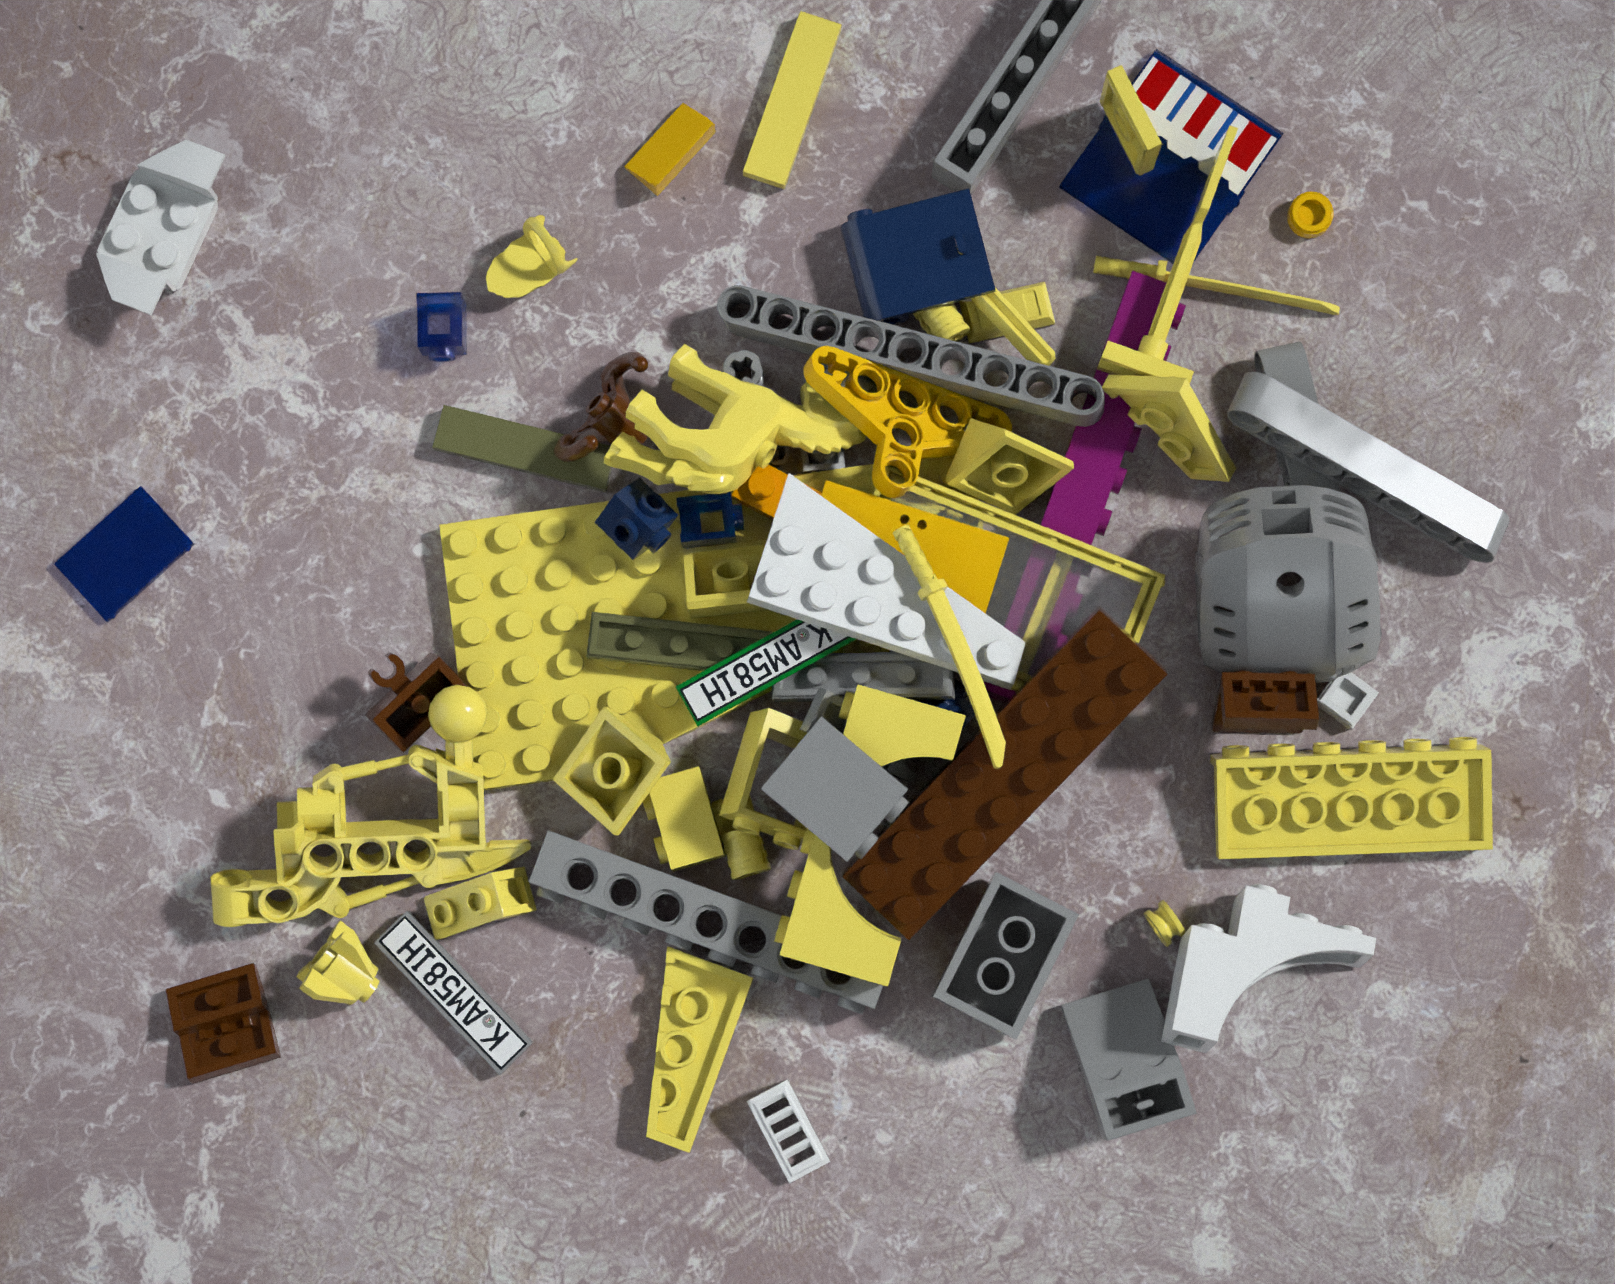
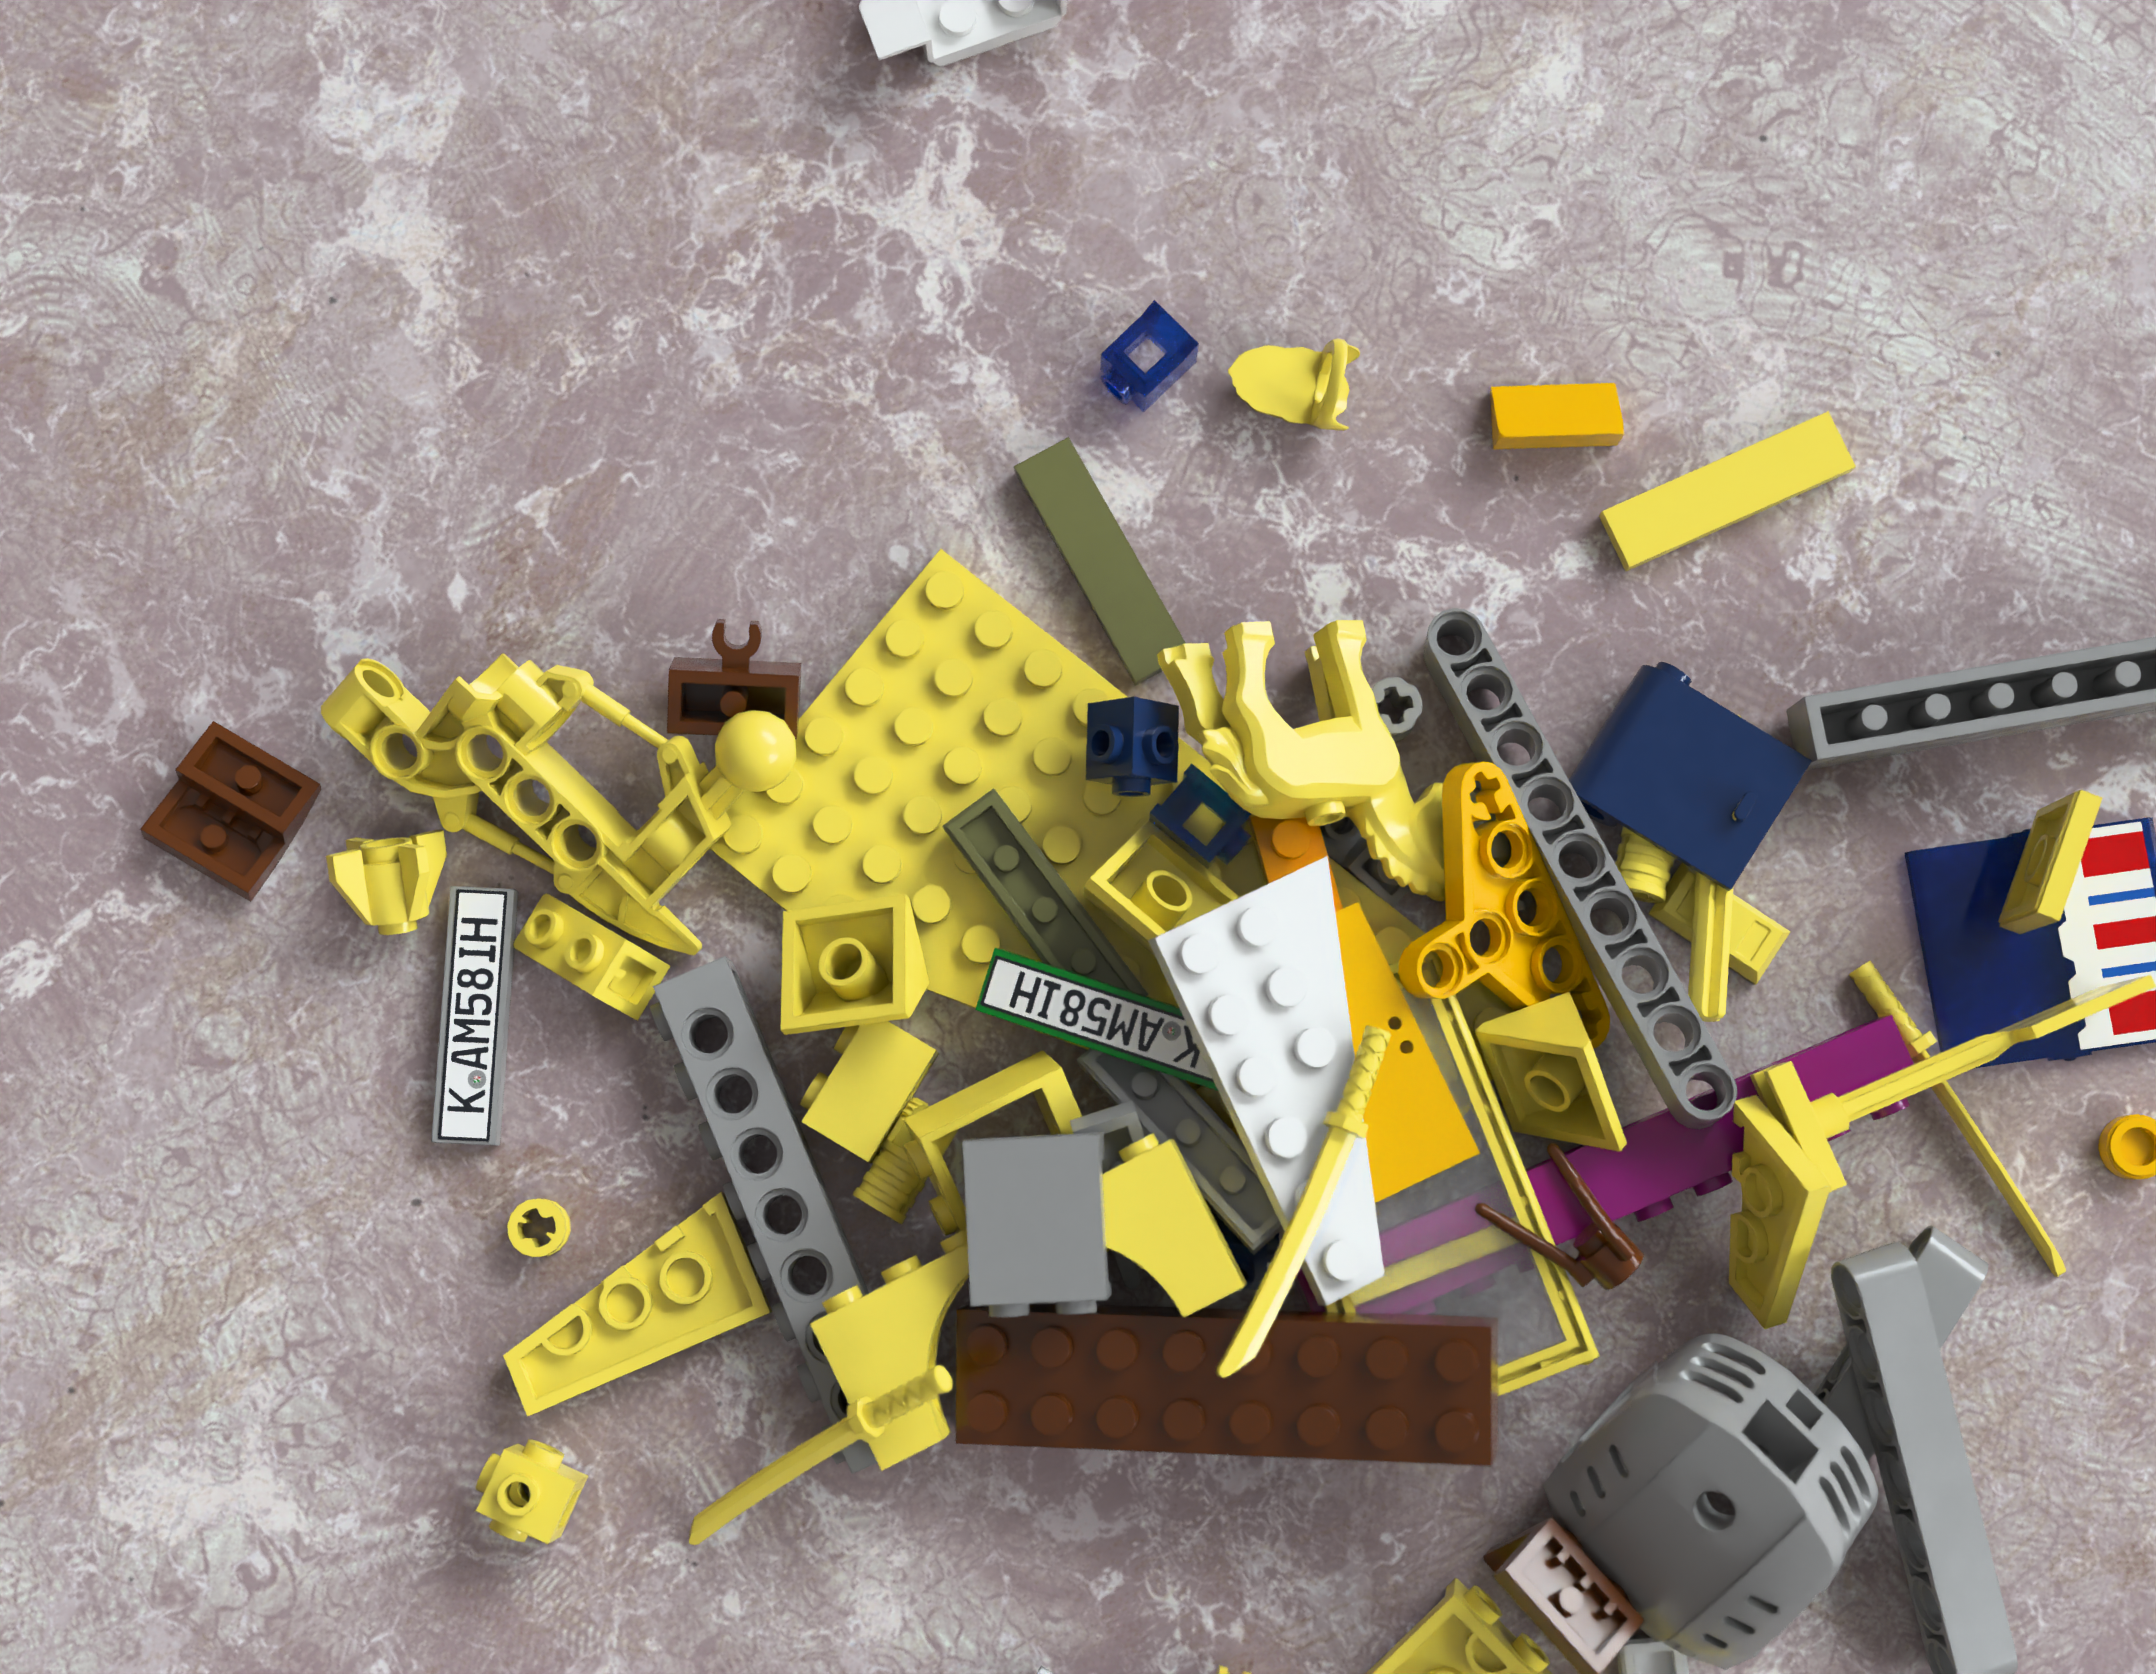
camera: 45 degrees right, 0 degrees up
(124, 554) = (617, 265): clear blue piece -> none
(592, 1046) = (546, 1209): none -> light yellow bush
(605, 412) = (1214, 606): reddish brown piece -> none
(741, 1173) = (551, 1485): none -> light yellow brick
(771, 1096) = (664, 1446): white slope -> none
(854, 971) = (864, 1421): none -> light yellow sword
(1005, 955) = (1034, 1561): light grey brick -> none
(1113, 521) = (1602, 1246): none -> reddish brown plant

